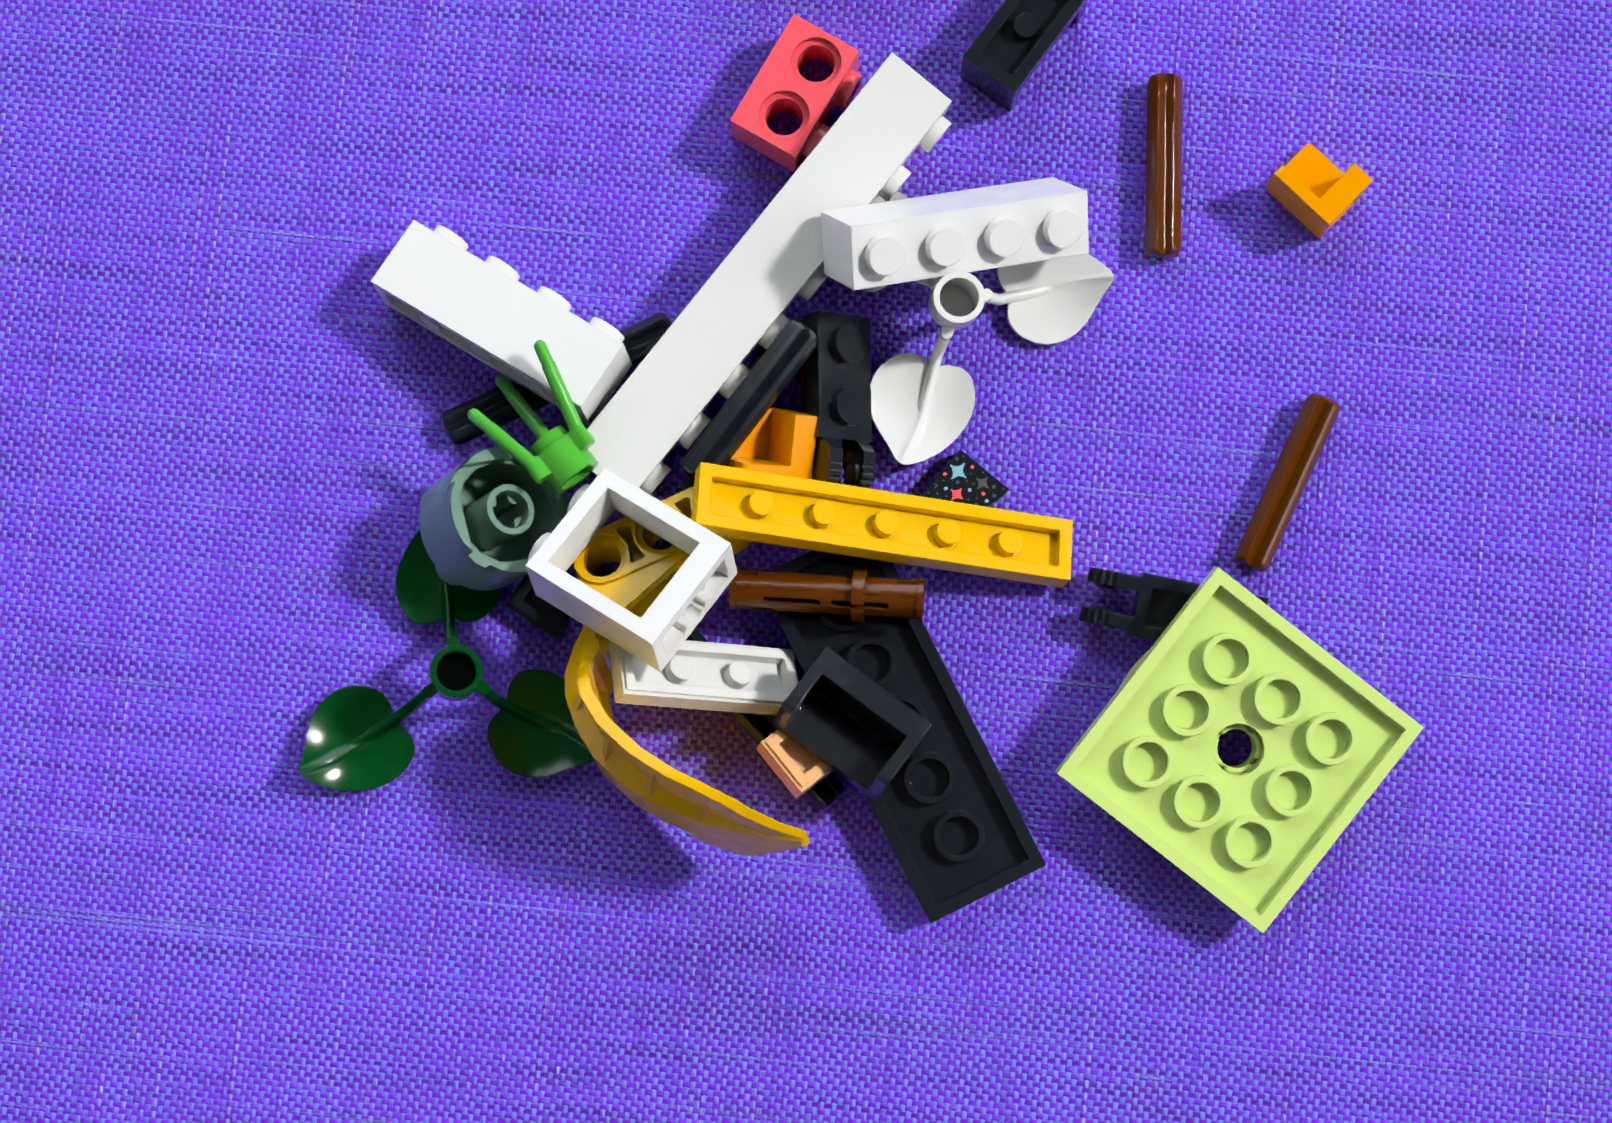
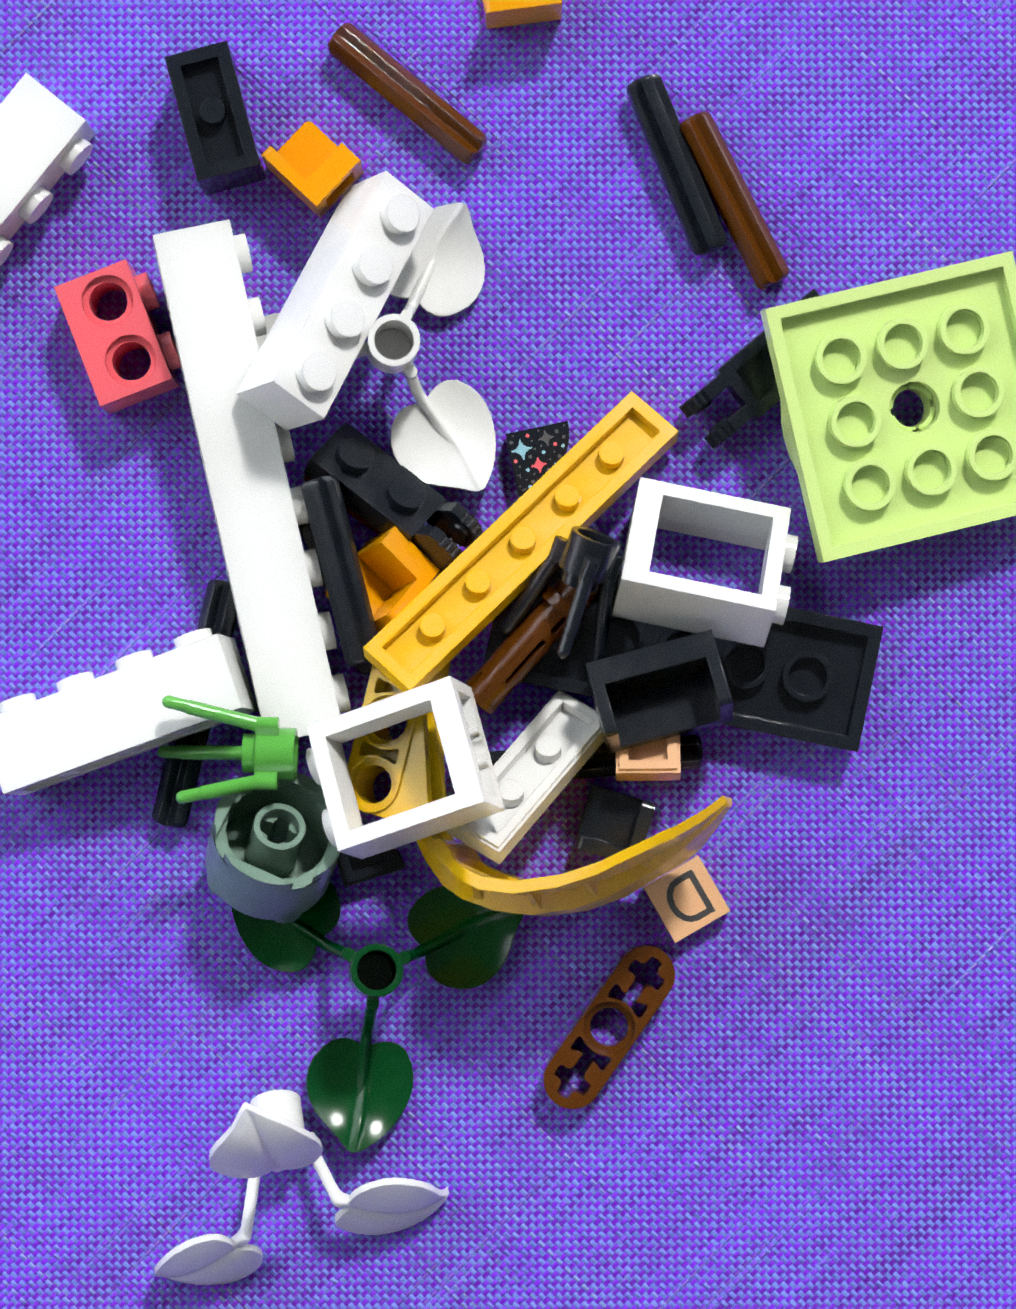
camera: 55 degrees left, 5 degrees up
(264, 701) = (273, 1138): none -> plant
(511, 917) = (593, 1073): none -> reddish brown beam
(707, 881) = (686, 898): none -> light nougat tile
(723, 768) = (612, 822): none -> black panel
(906, 583) = (586, 561): none -> black plant
(943, 700) = (695, 604): none -> white window
(1048, 140) = (314, 167): none -> light orange panel
(1278, 416) = (676, 164): none -> black axle

